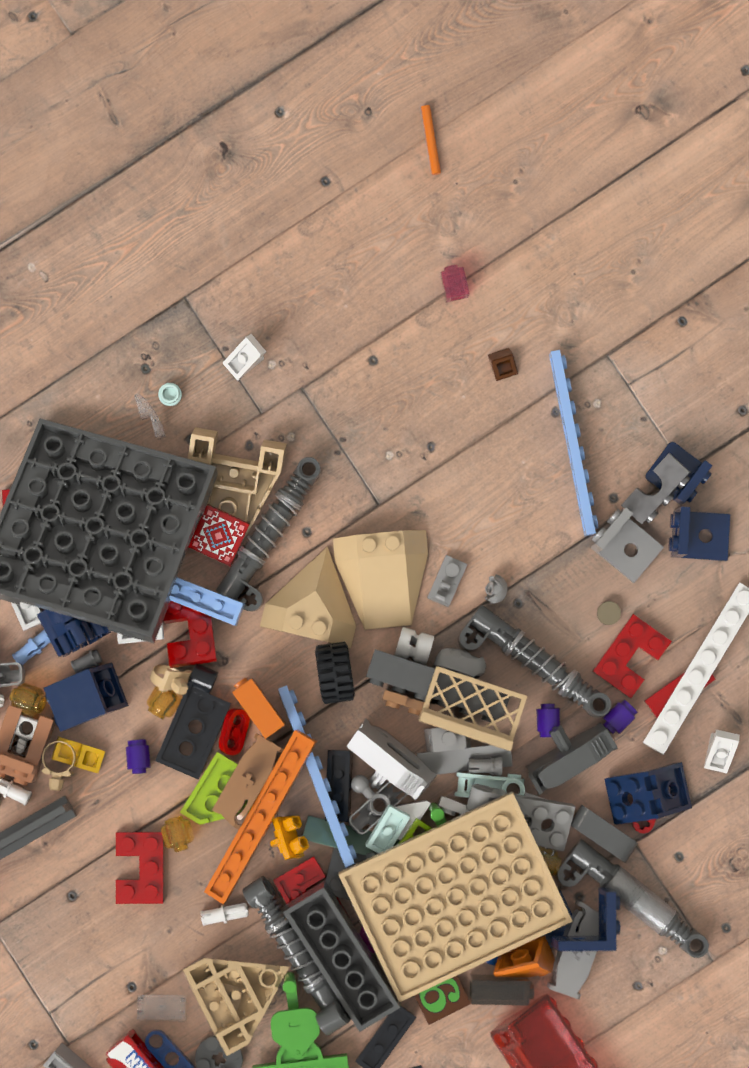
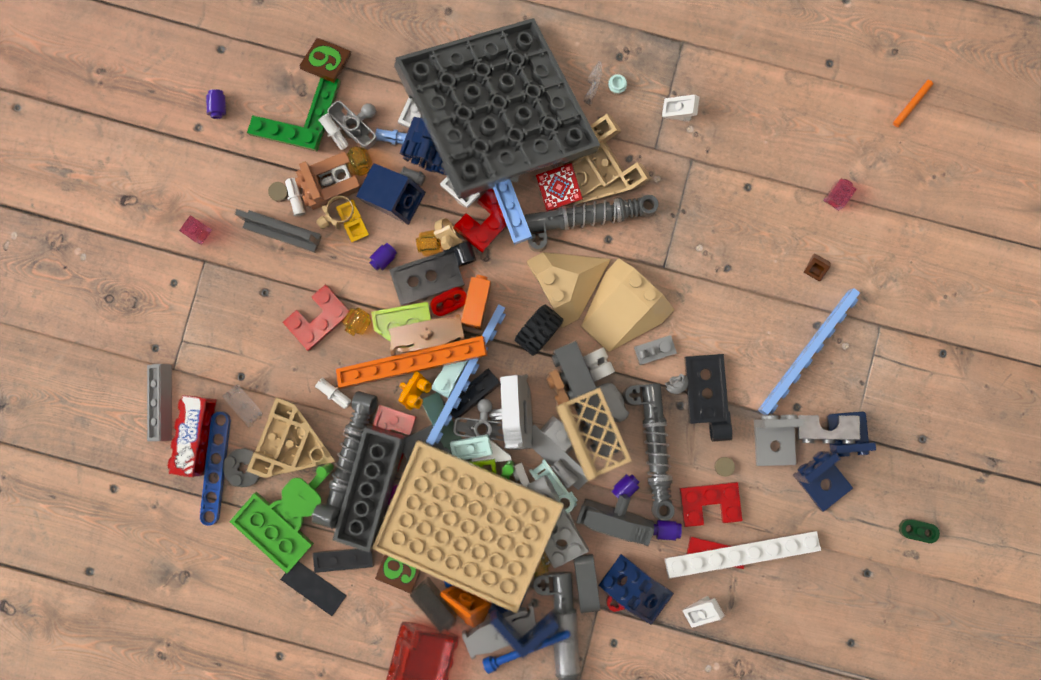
camera: 50 degrees right, 0 degrees up
(305, 795) = (448, 378): none -> light aqua piece
(548, 575) = (716, 408): none -> black hinge
(600, 984) = (492, 663): none -> blue piece

